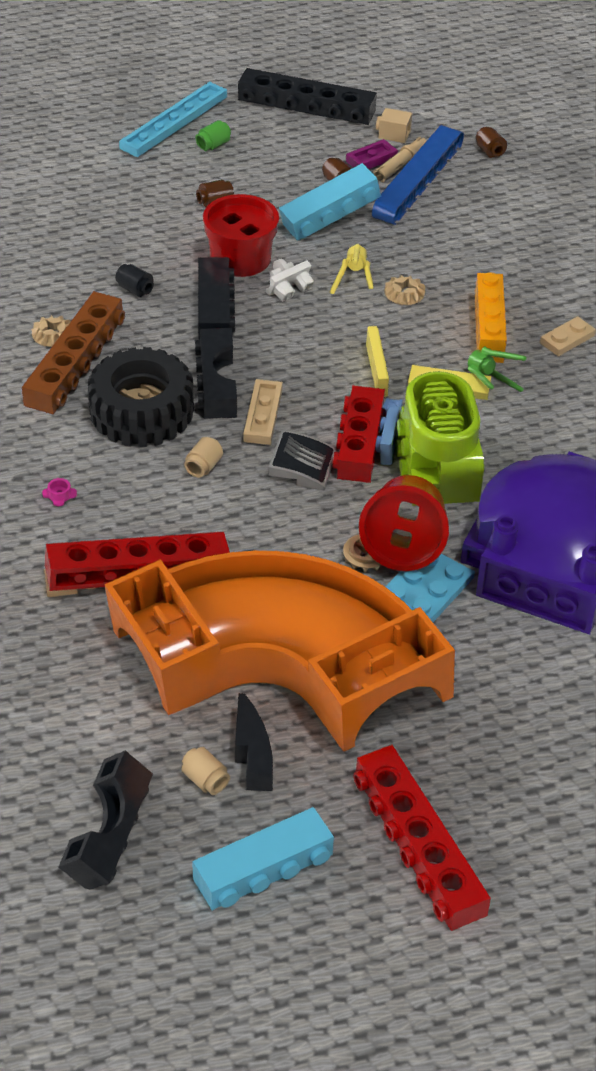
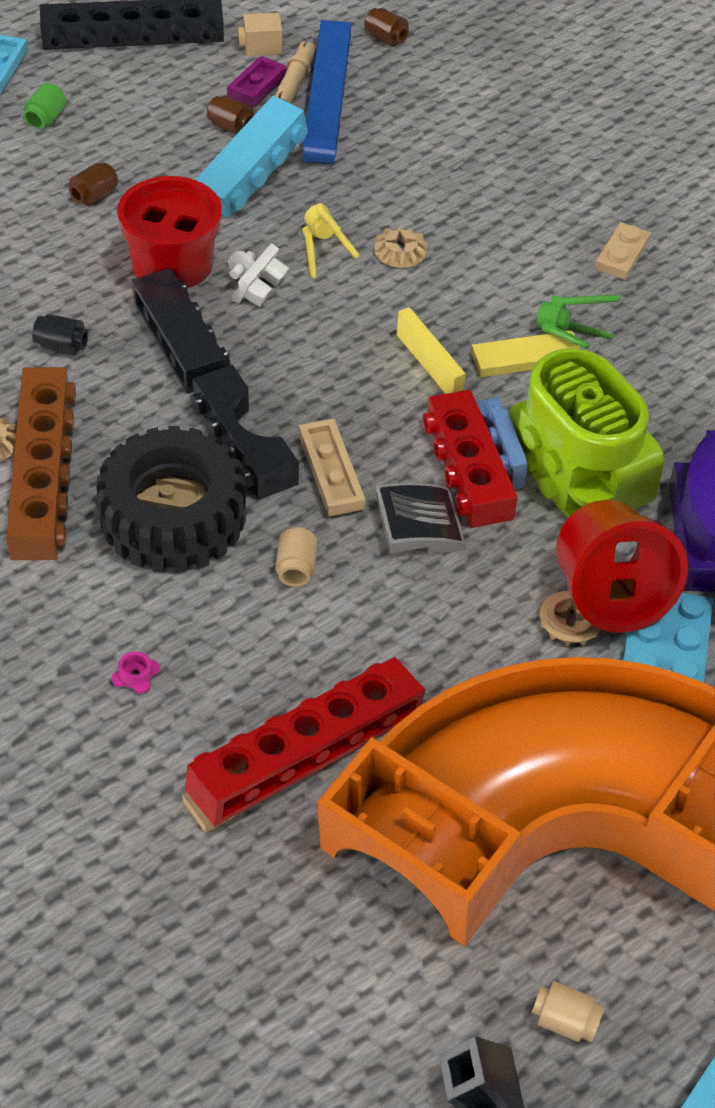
camera: 25 degrees left, 5 degrees up
(253, 746) = (606, 949): black slope -> none
(490, 313) = (526, 251): light orange brick -> none

